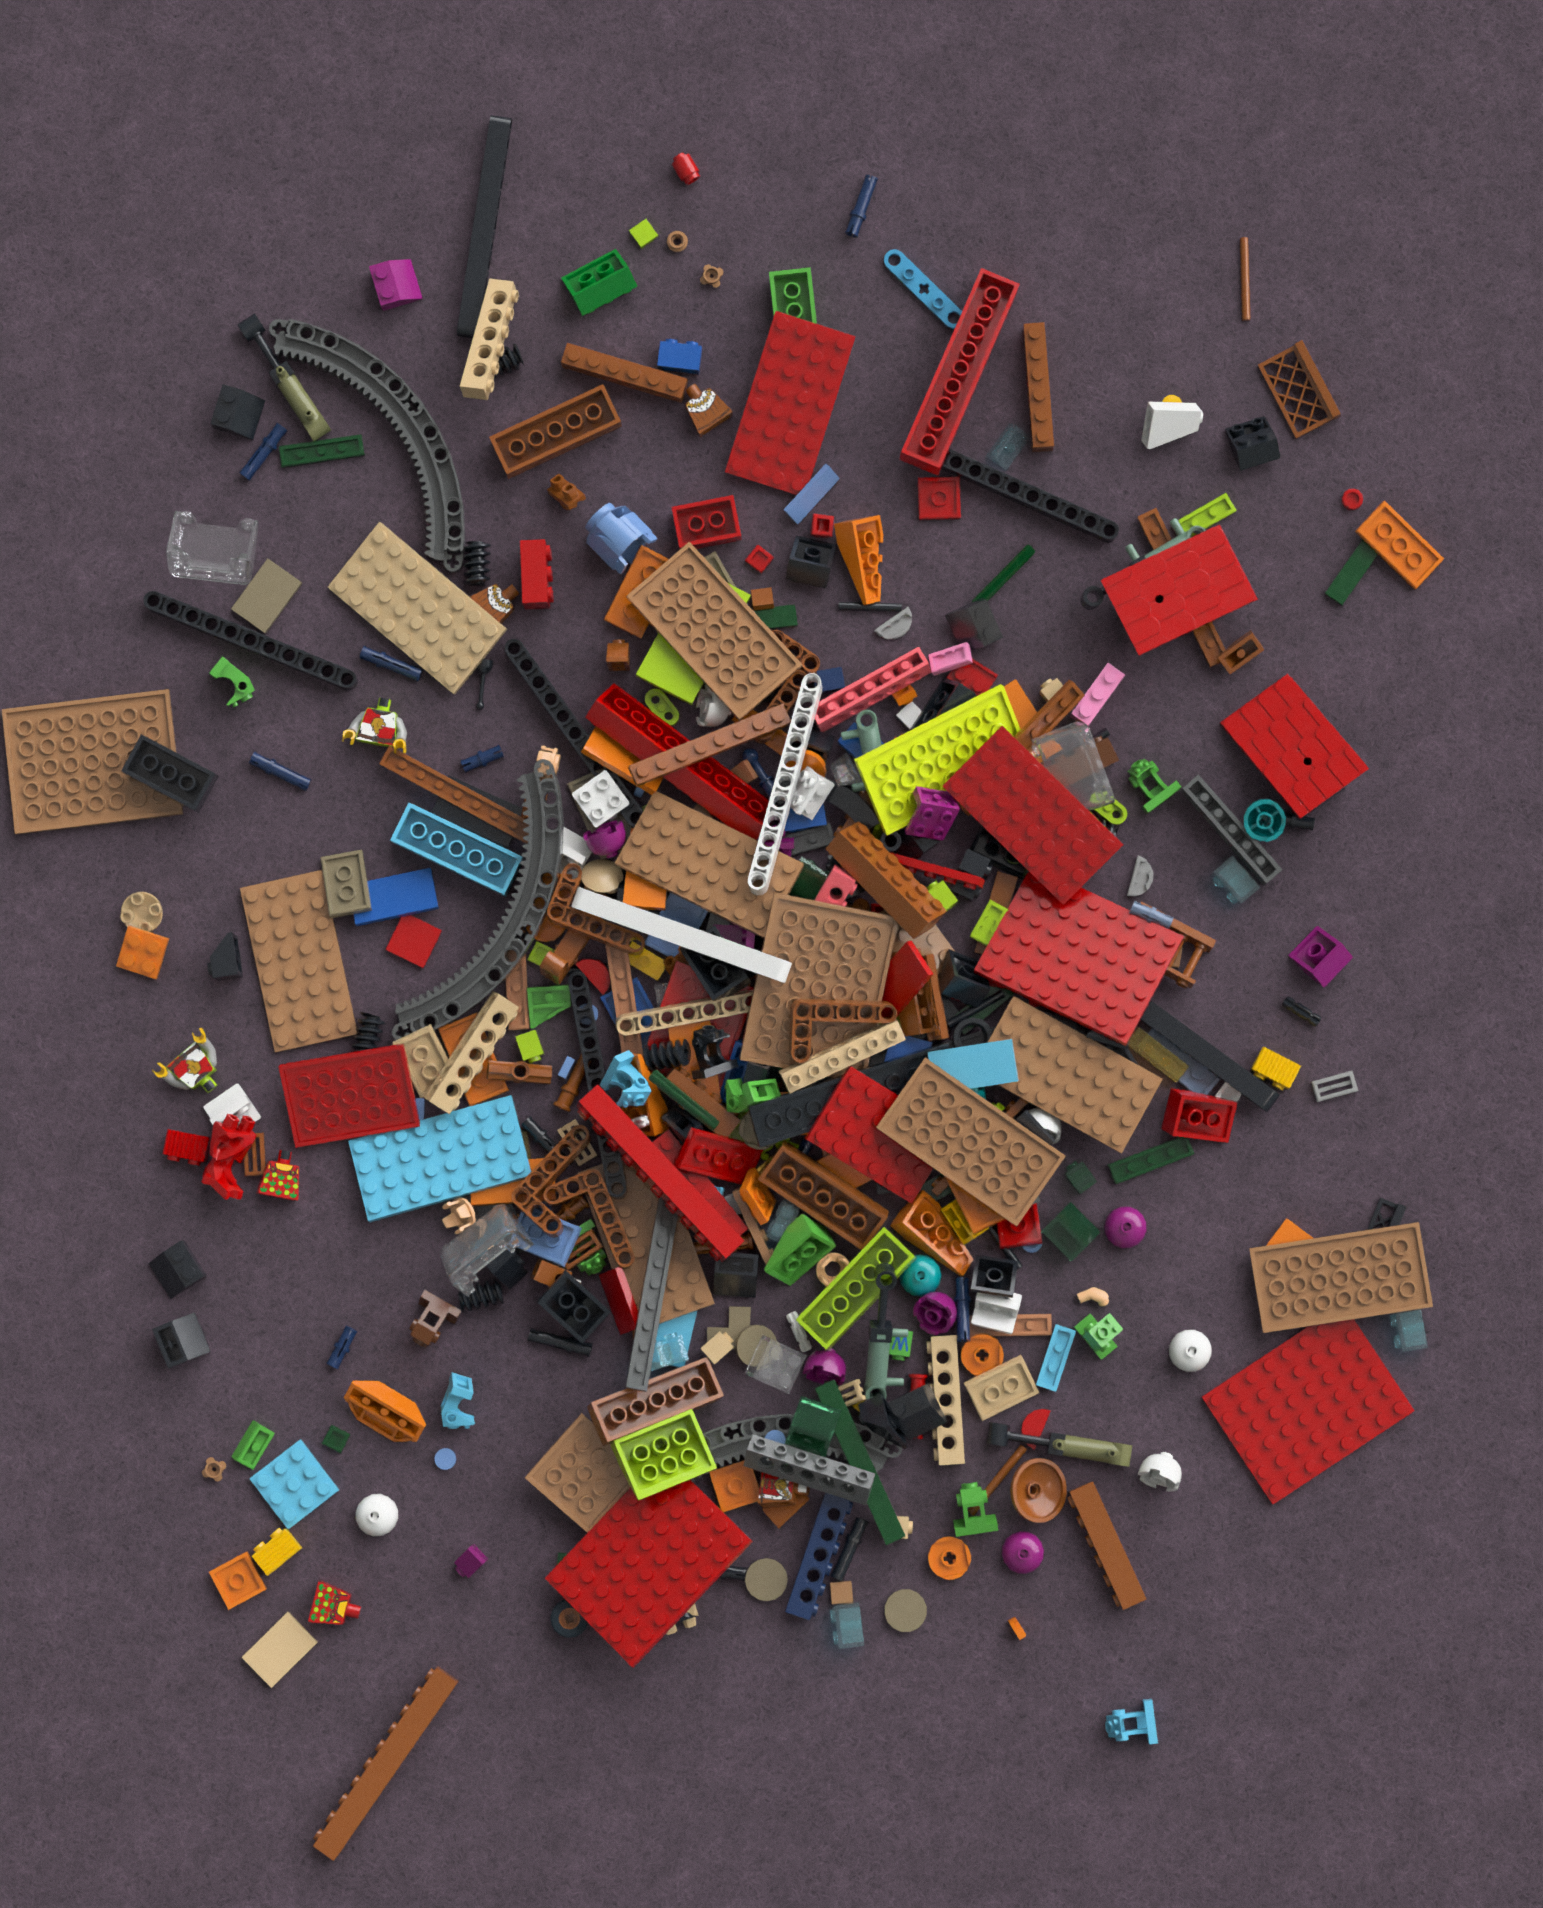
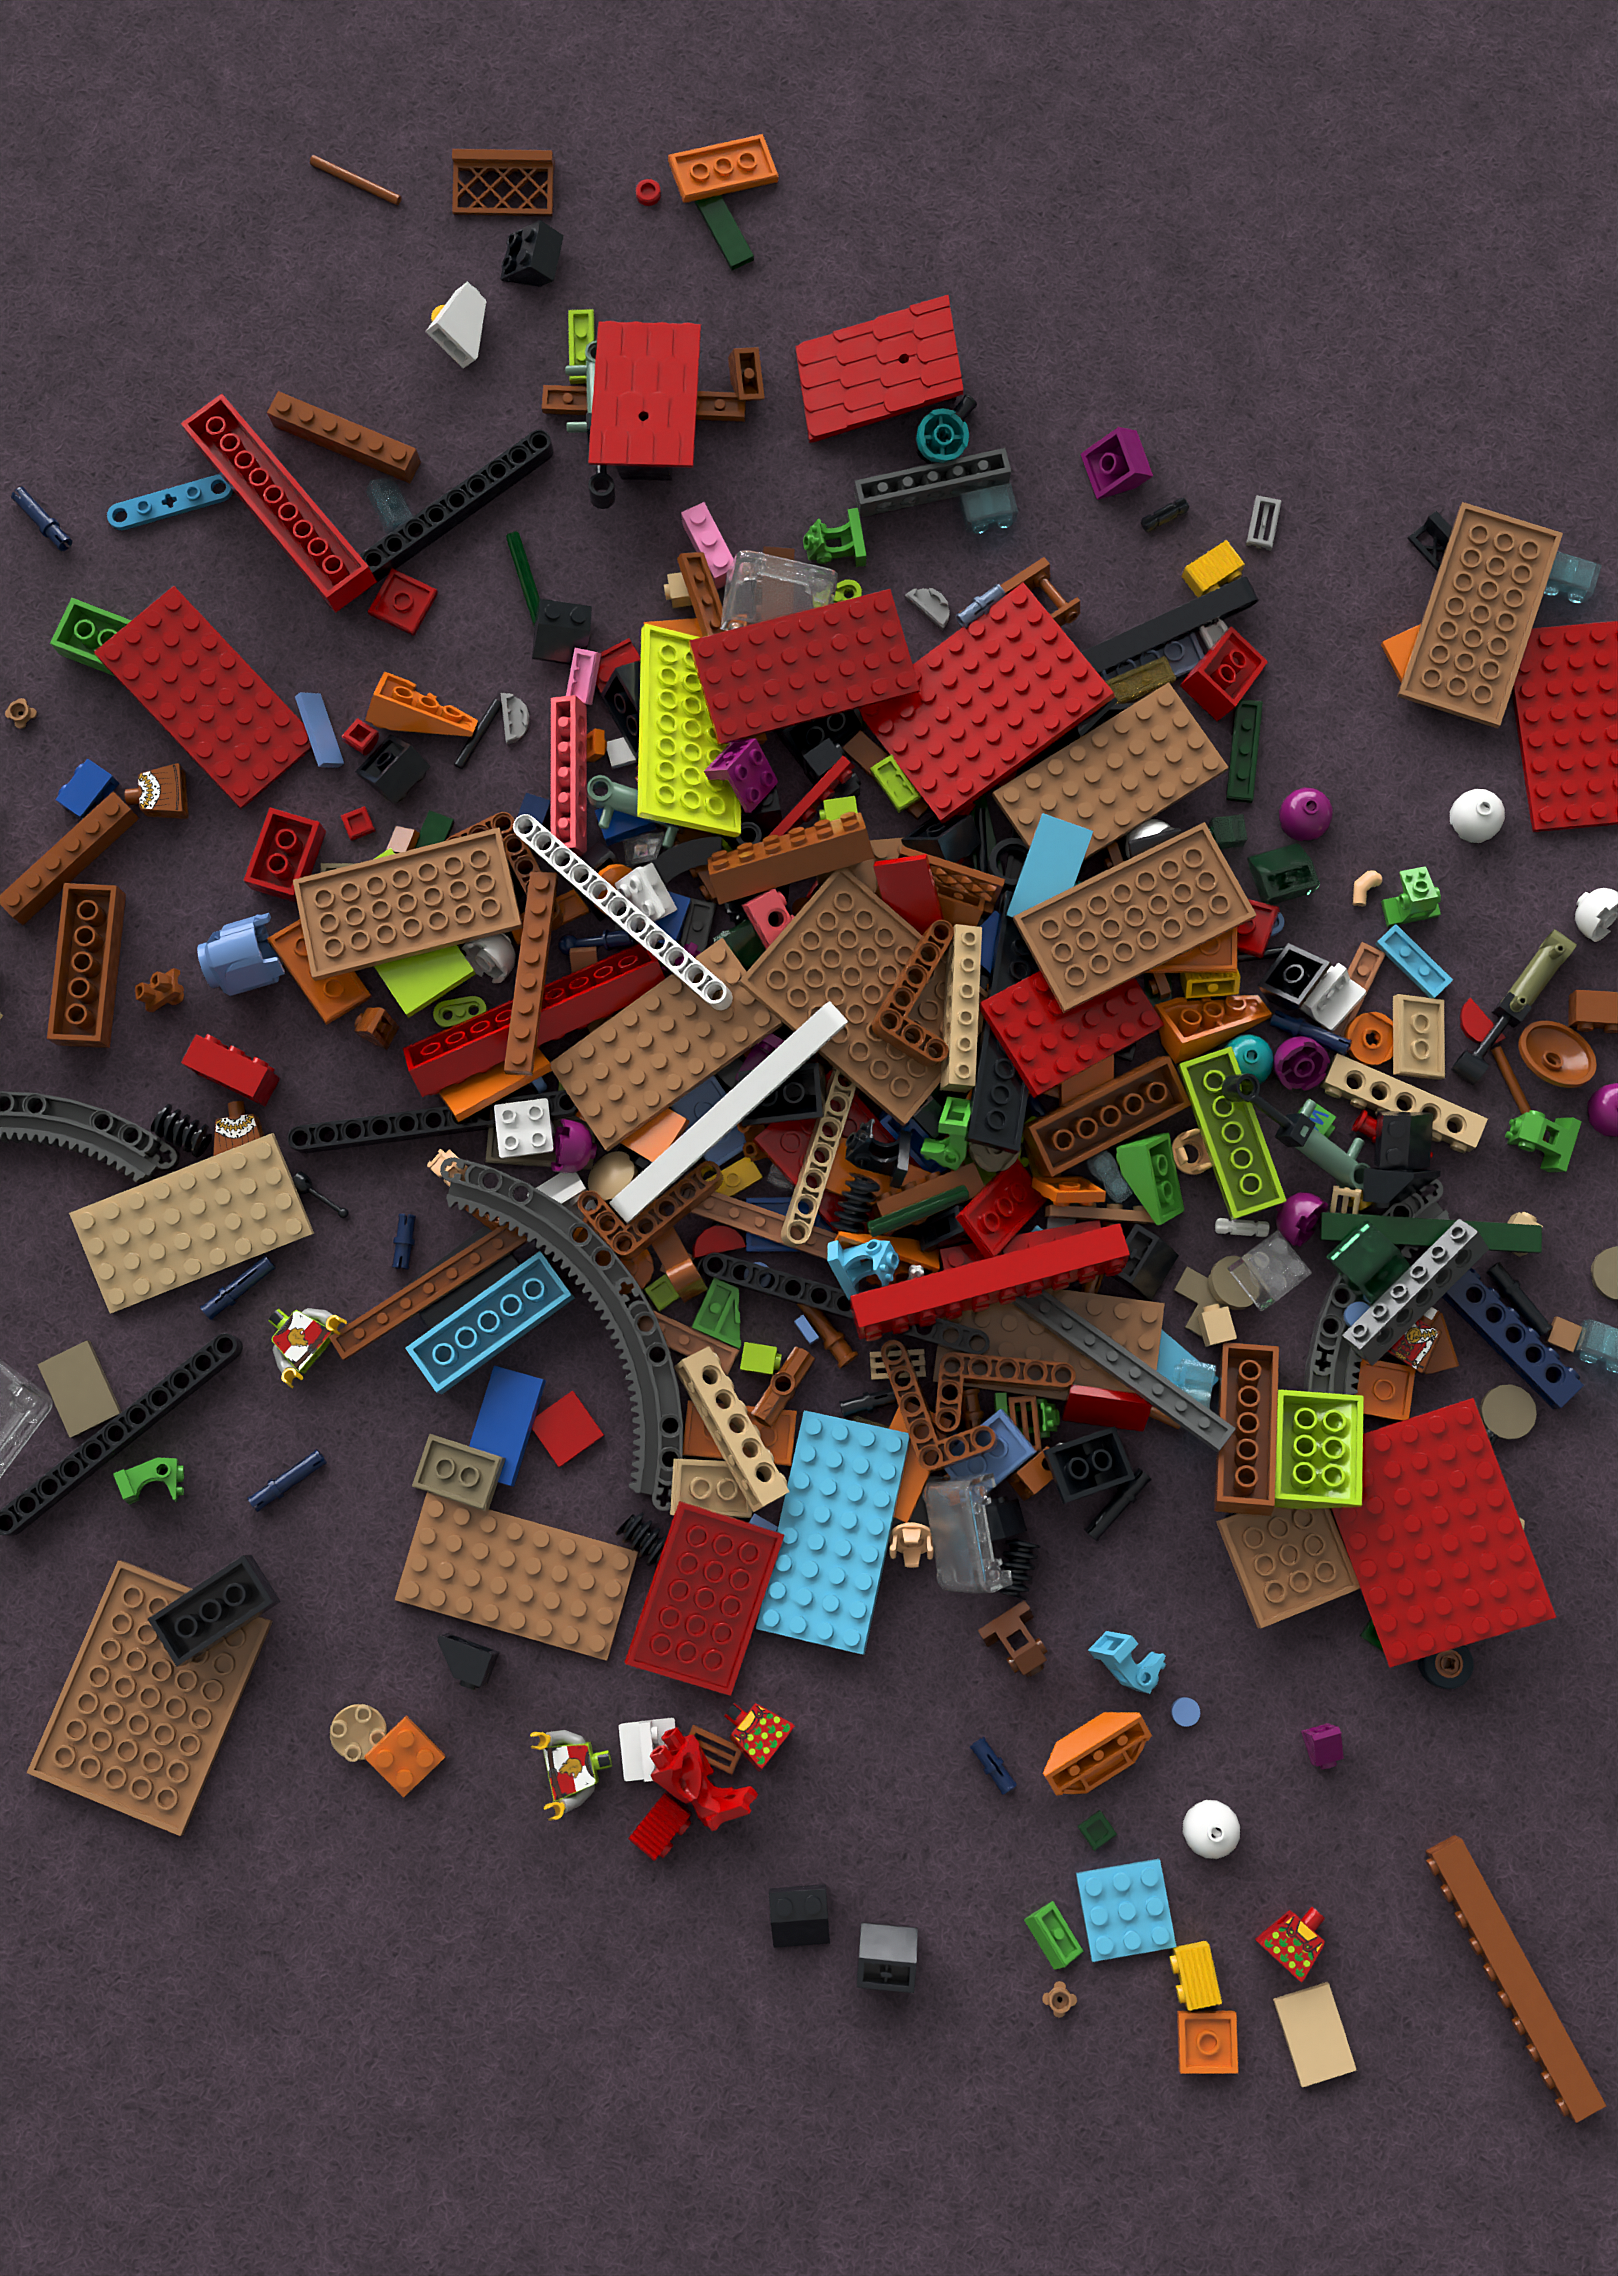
camera: 65 degrees left, 5 degrees down
(957, 1548) = (1595, 1184): orange plate -> none

